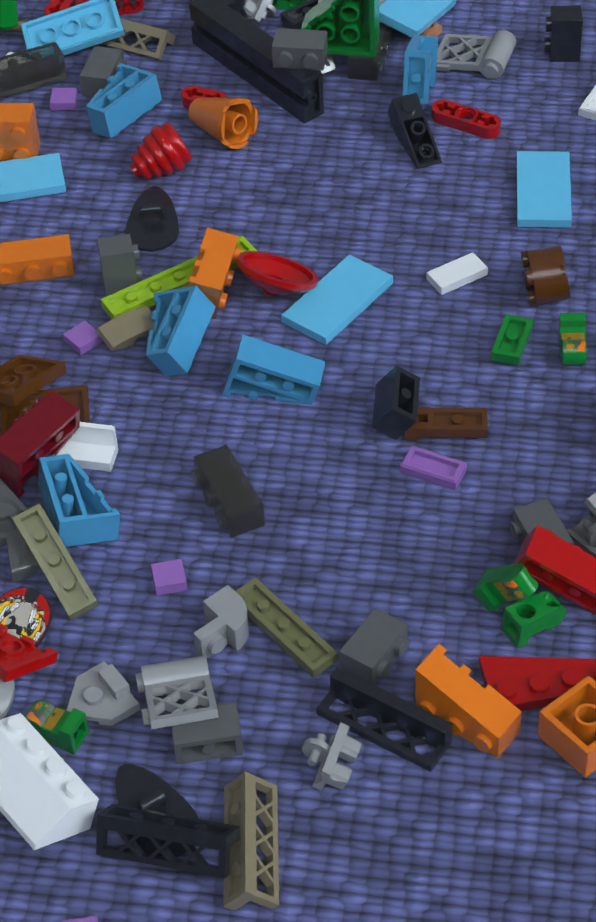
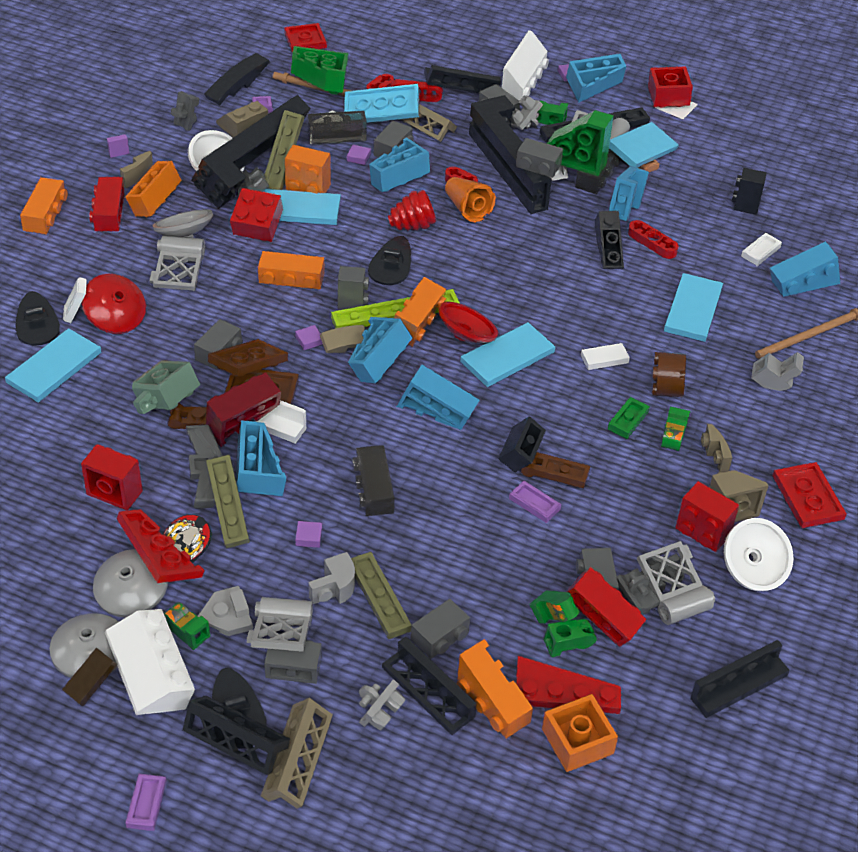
camera: 10 degrees right, 0 degrees up
(490, 57) = (687, 196): light grey piece -> none

